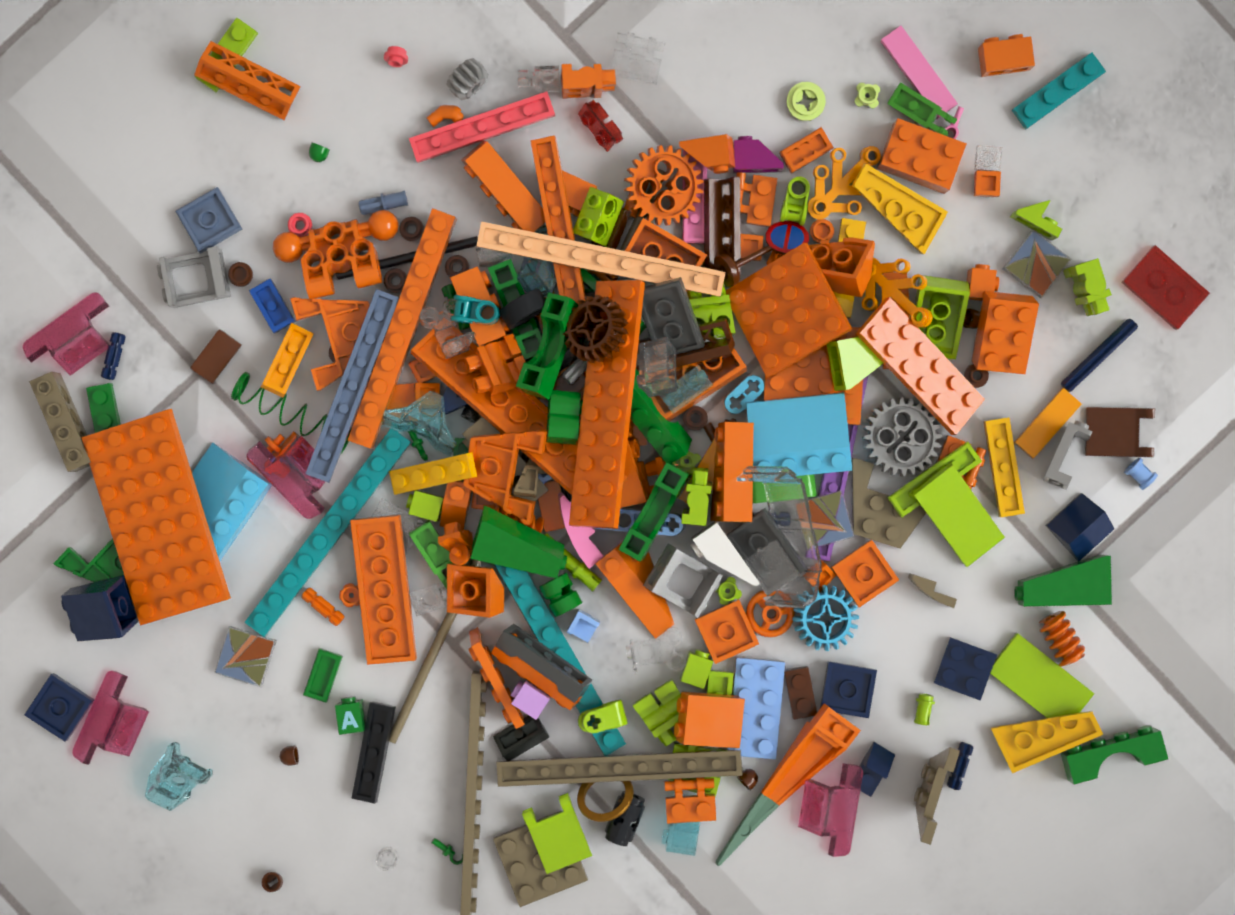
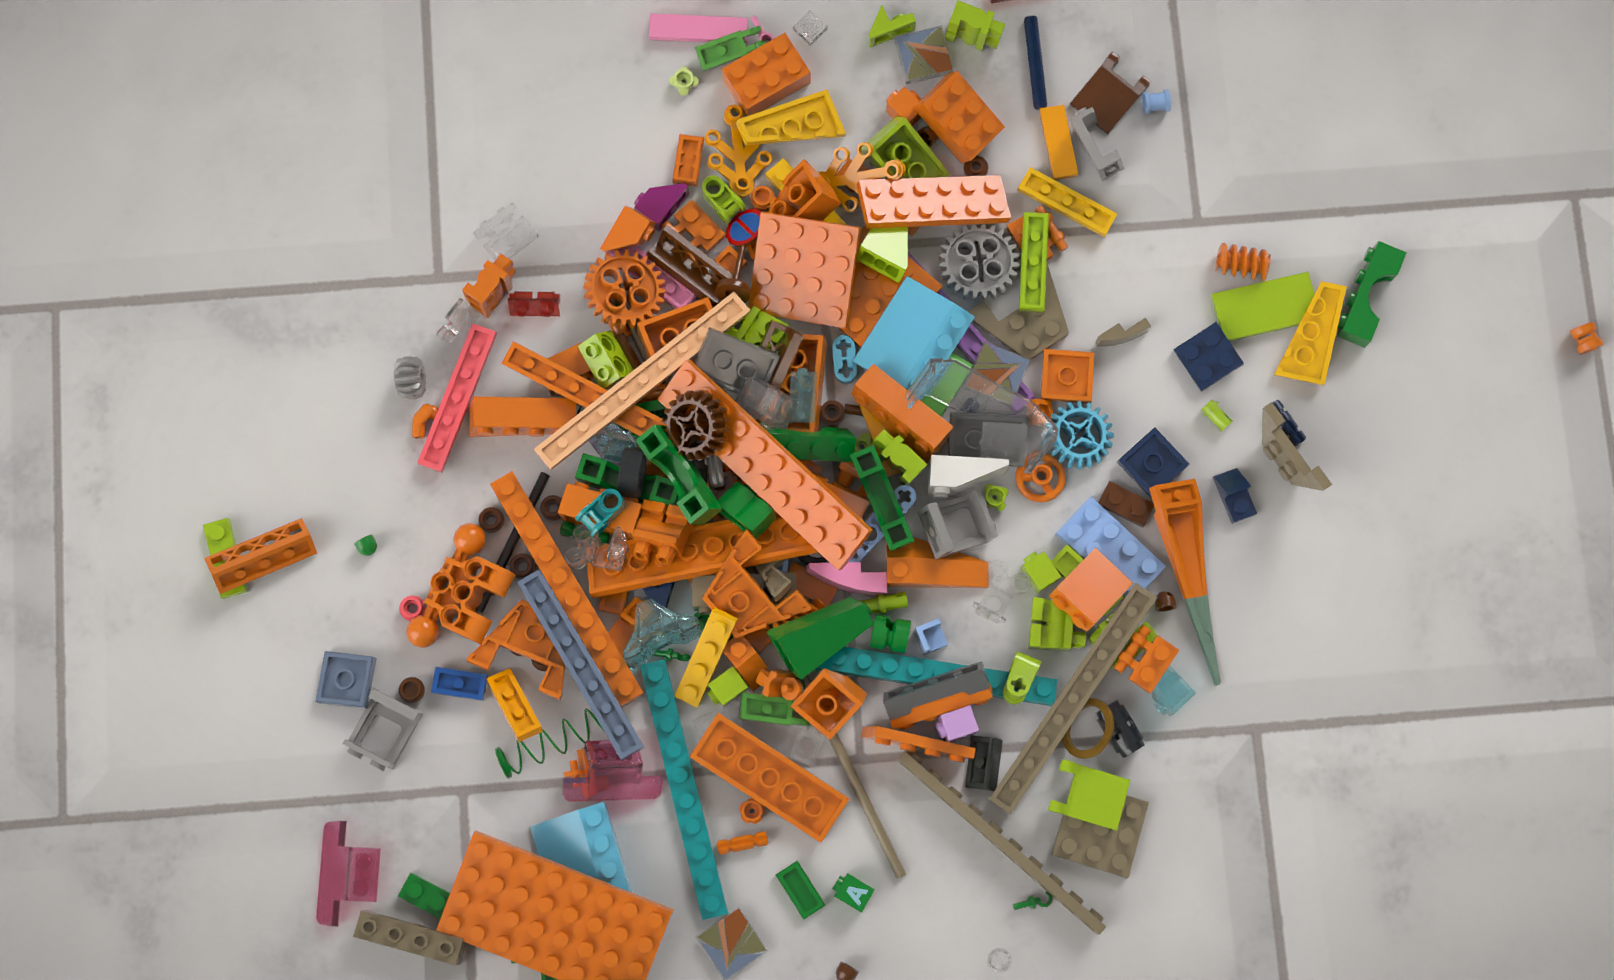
camera: 55 degrees left, 10 degrees down
(113, 356) = (390, 852): dark blue axle -> none
(216, 356) = (461, 764): reddish brown slope -> none
(373, 752) = (899, 897): black plate -> none
(383, 202) = (450, 525): sand blue axle -> none
(396, 56) = (343, 421): coral plate -> none
(470, 414) = (682, 590): clear smoke hinge -> none
(490, 257) = (566, 470): clear brick -> none
(726, 631) = (1028, 523): orange plate -> none
(812, 92) = (645, 121): yellowish green gear -> none
(833, 809) = (1243, 551): clear pink plate -> none
(958, 515) = (1077, 265): lime tile -> none
(987, 183) = (829, 43): orange plate -> none
(1070, 585) = (1204, 222): green slope -> none
(1080, 526) = (1162, 179): dark blue slope -> none

